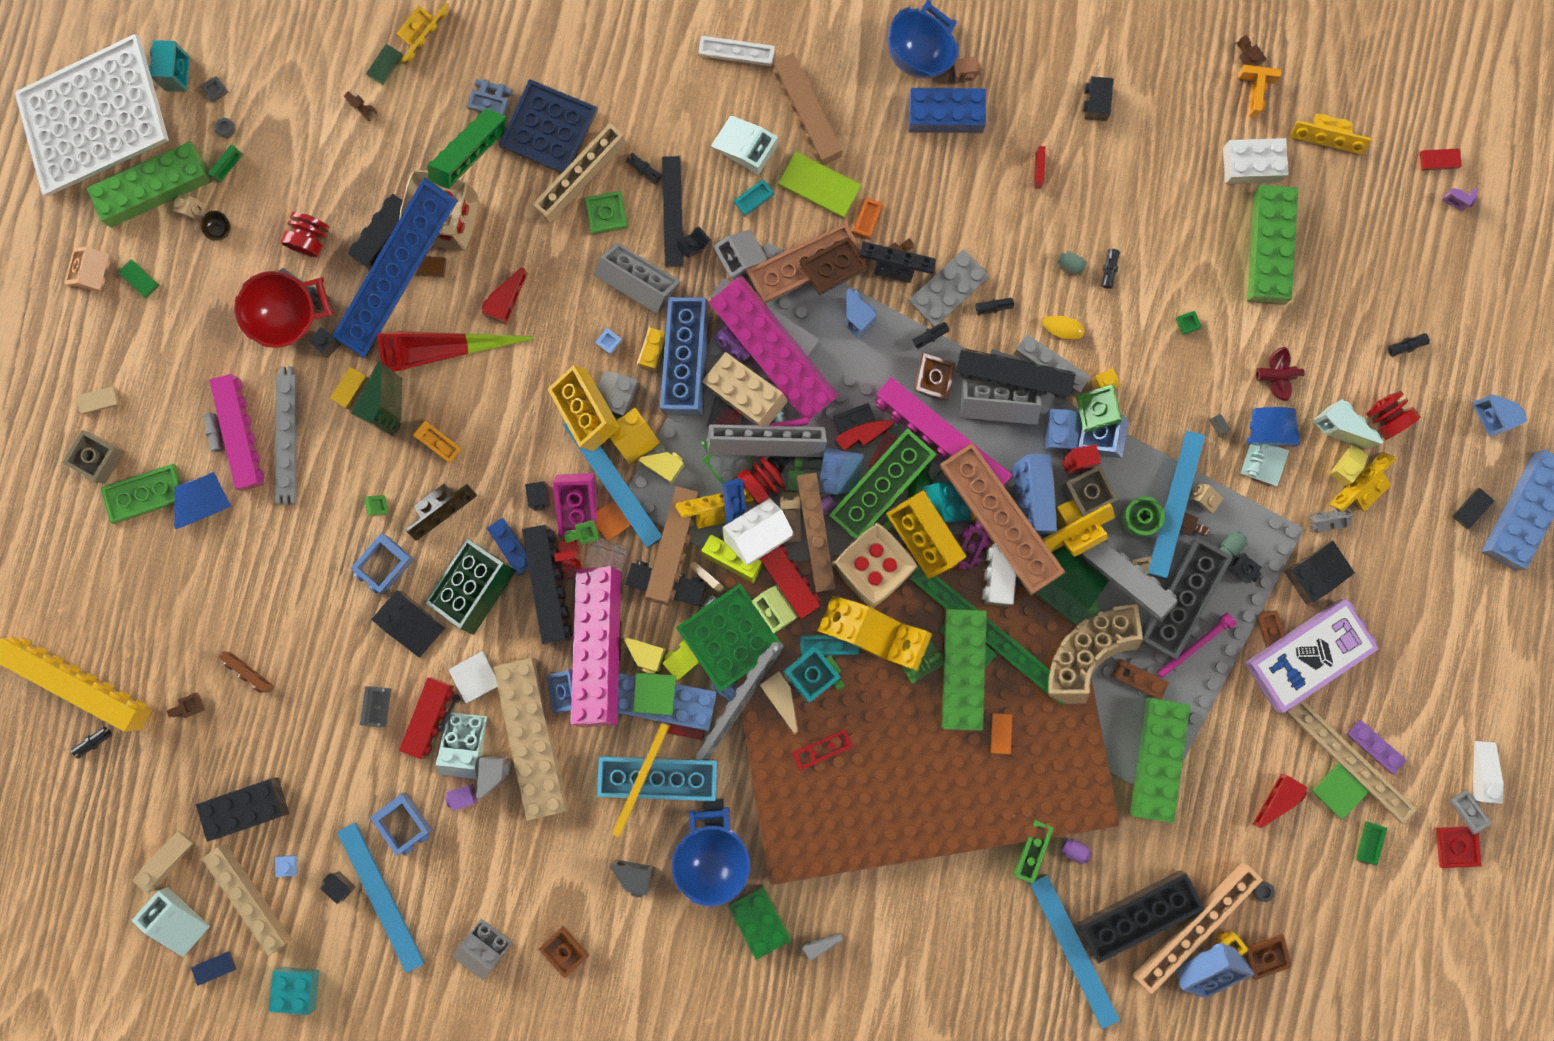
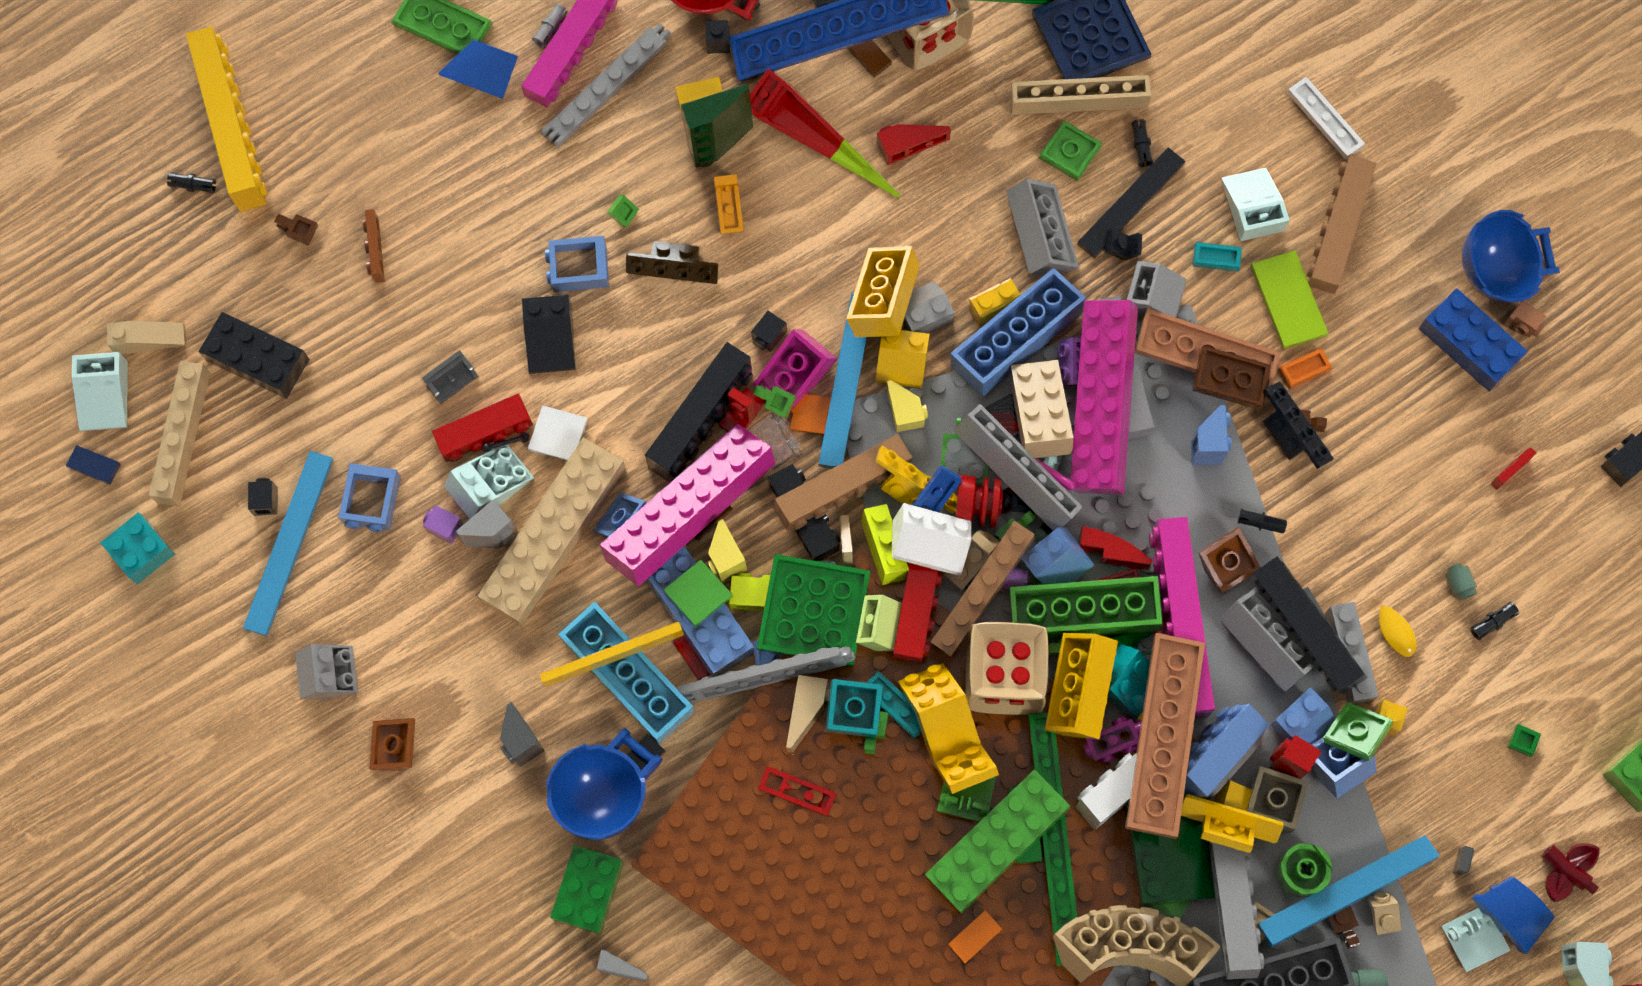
camera: 40 degrees right, 10 degrees down
(285, 866) = (239, 438): light blue plate -> none
(470, 587) = (632, 354): dark green slope -> none
(509, 546) = (701, 350): blue plate -> none
(608, 341) = (963, 259): light blue plate -> none
(853, 418) = (1118, 526): black plate -> none
(949, 288) = (1321, 498): light grey plate -> none
(994, 306) = (1349, 552): black axle -> none

